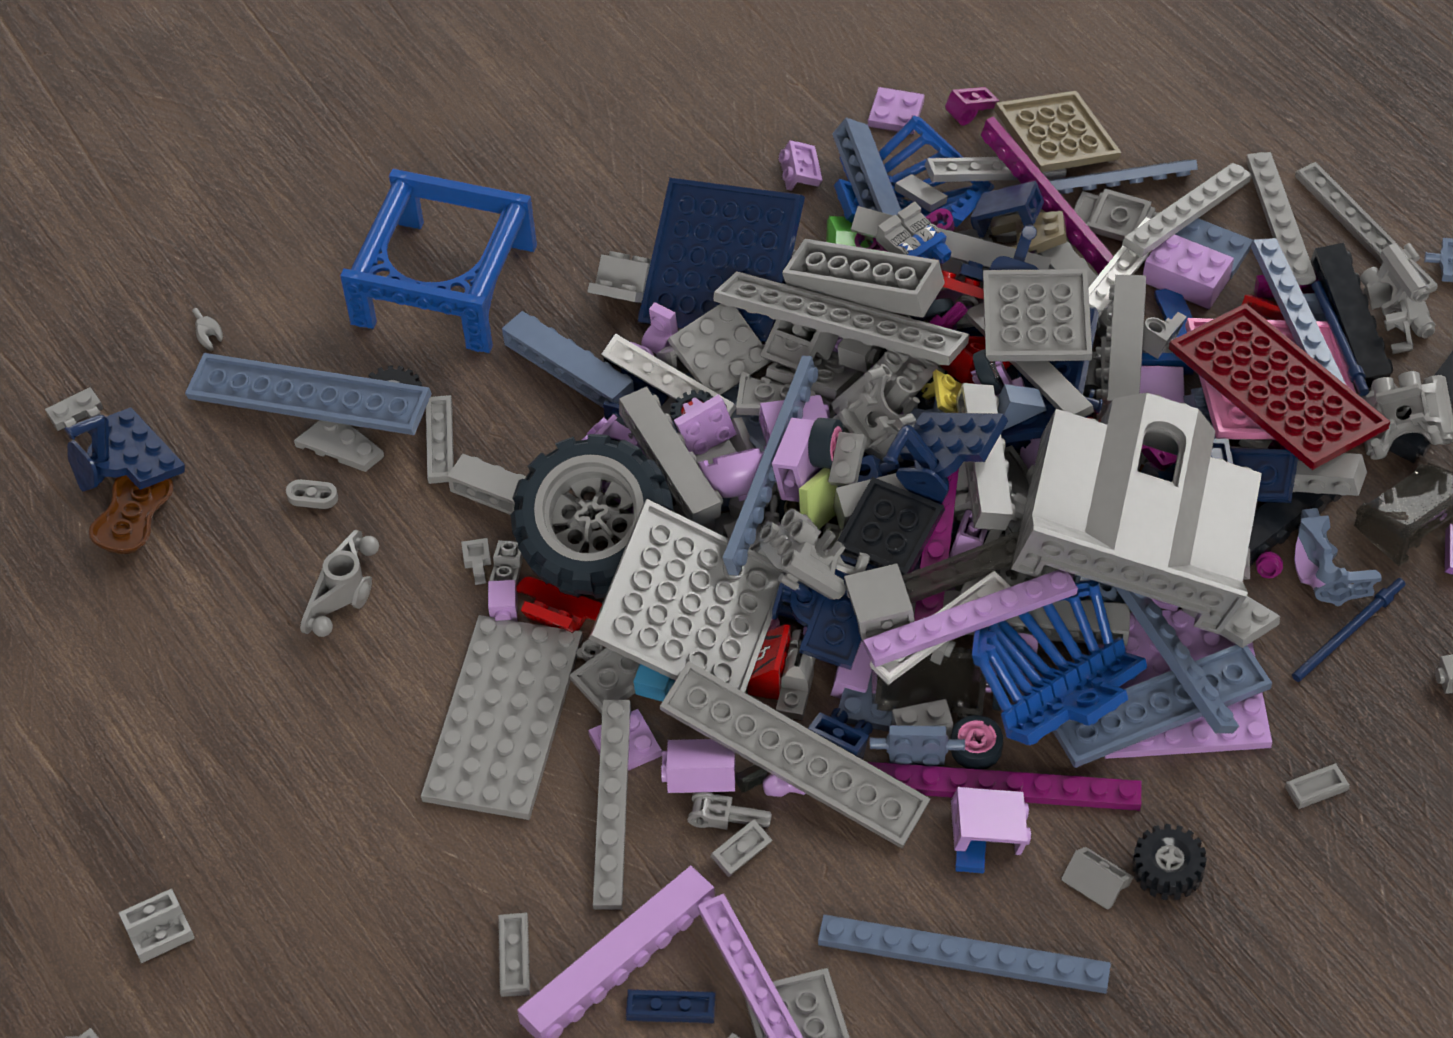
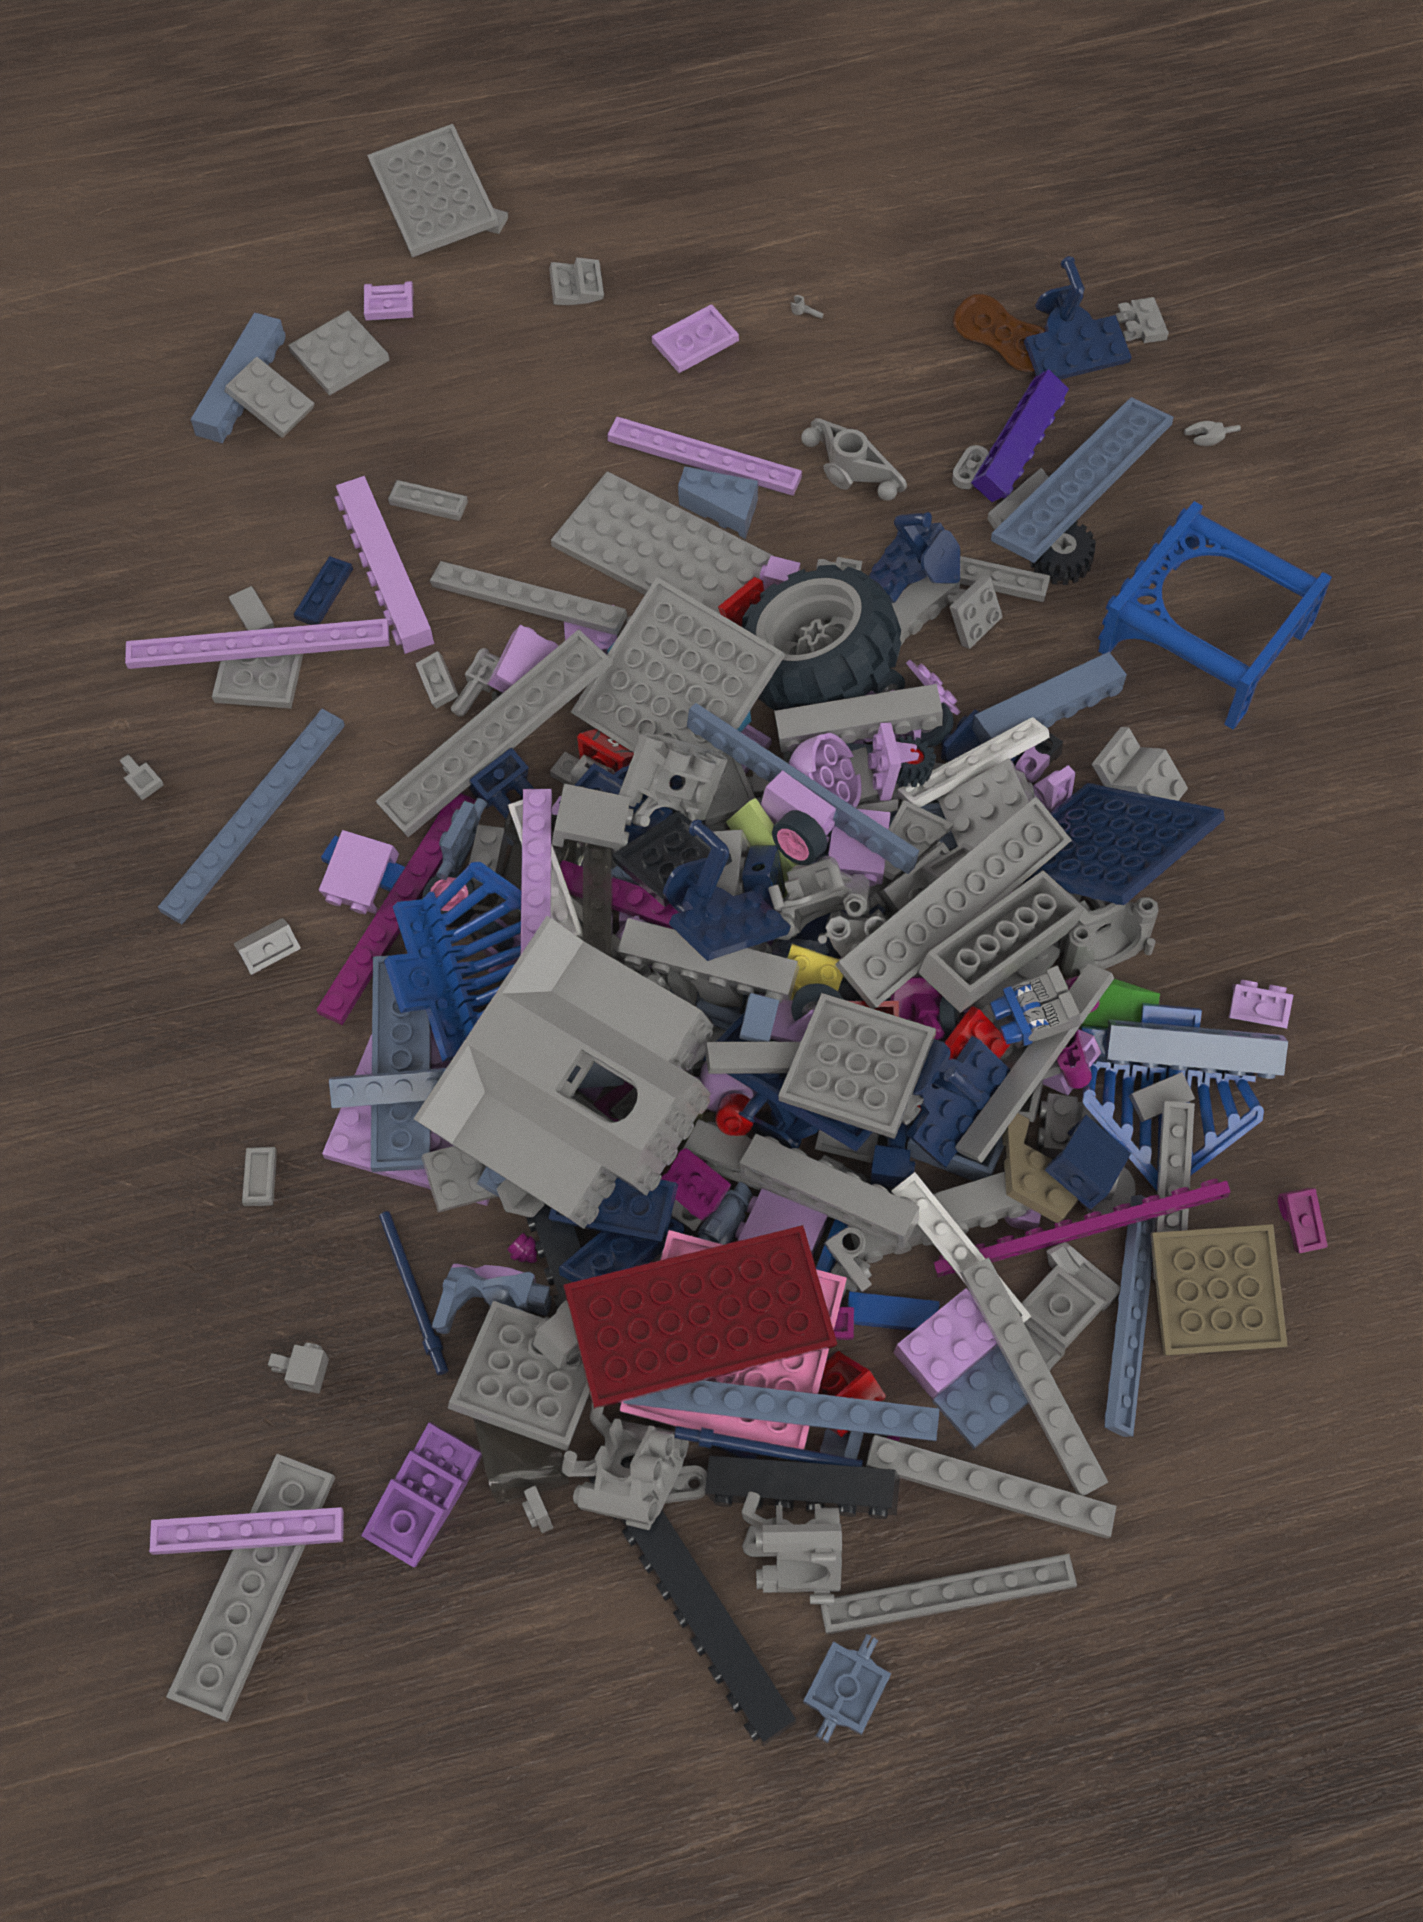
camera: 110 degrees right, 10 degrees up
(136, 696) = (799, 307): none -> light grey hand
(211, 778) = (695, 338): none -> lavender plate
(264, 460) = (1020, 436): none -> dark purple brick
(370, 719) = (704, 455): none -> lavender plate
(426, 678) = (719, 497): none -> sand blue wedge
(457, 497) = (916, 553): none -> dark blue plate
(492, 436) = (975, 610): none -> light grey plate
(847, 459) = (774, 853): light grey plate -> none
(894, 109) = (1323, 1139): lavender plate -> none
(1169, 848) = (245, 992): black wheel -> none
(1395, 494) = (517, 1385): none -> light grey plate

